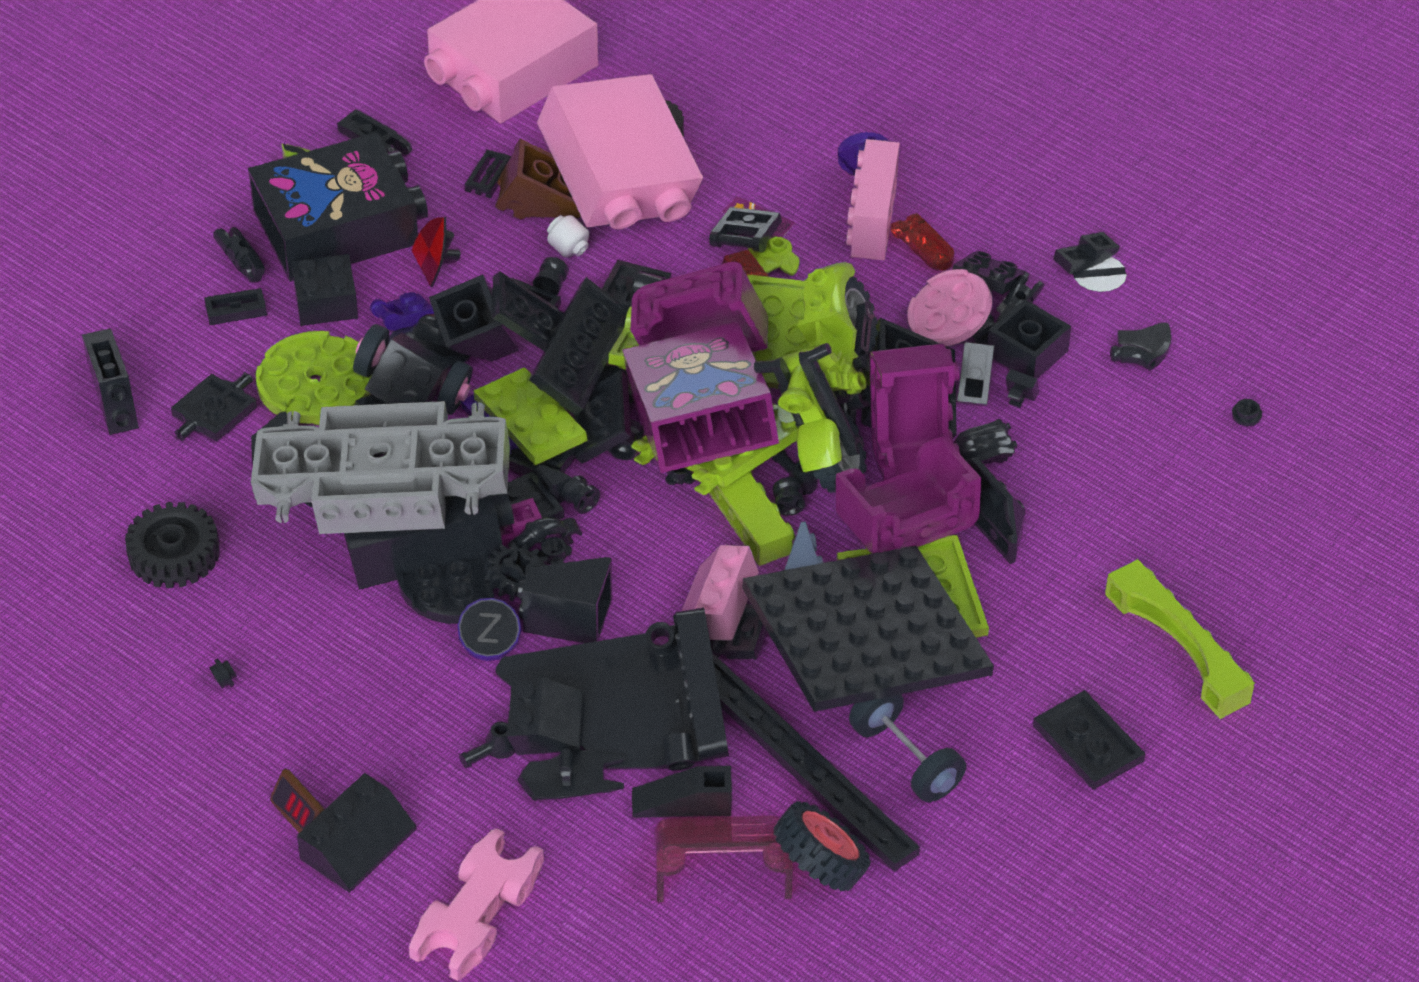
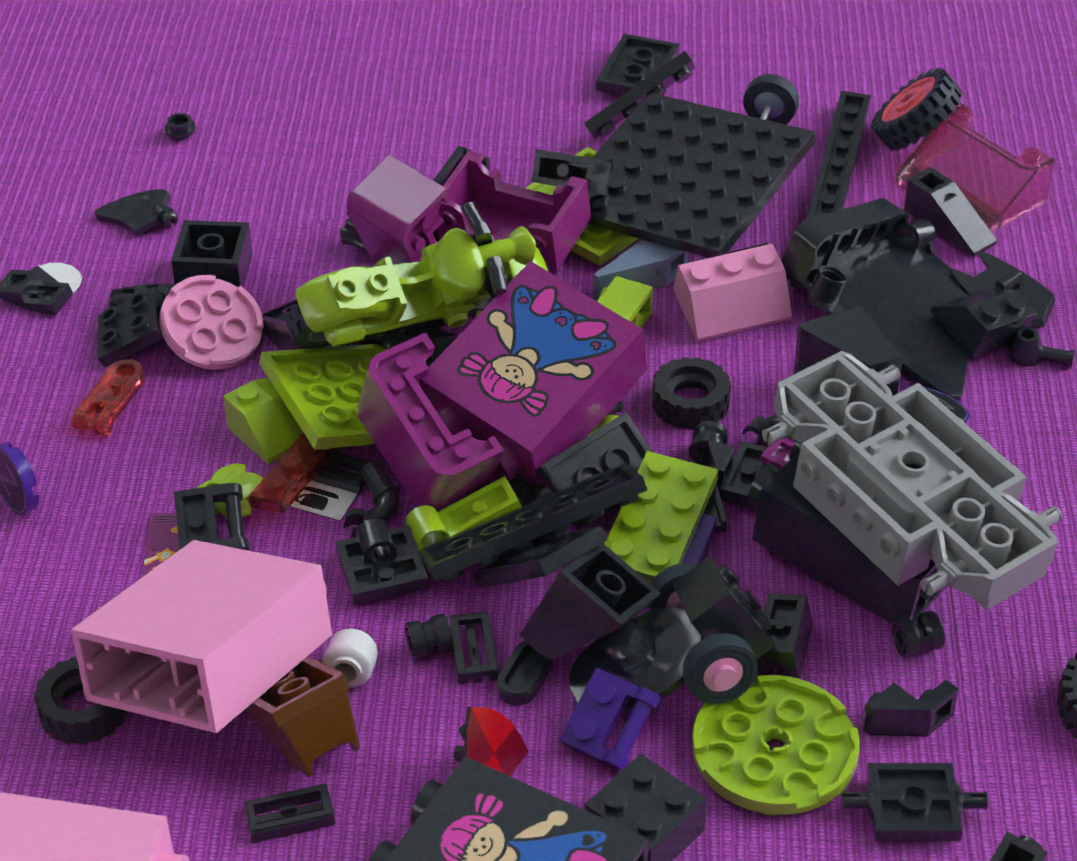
camera: 125 degrees left, 5 degrees down
(644, 538) = (690, 373): none -> black tyre
(873, 199) = (91, 432): bright pink brick -> none
(910, 537) = (557, 168): none -> black brick
(976, 373) = (282, 275): slope -> none
(1003, 678) = (676, 71): none -> black plate
(1021, 387) = (273, 247): black tile -> none
(1140, 593) = (459, 96): lime arch -> none

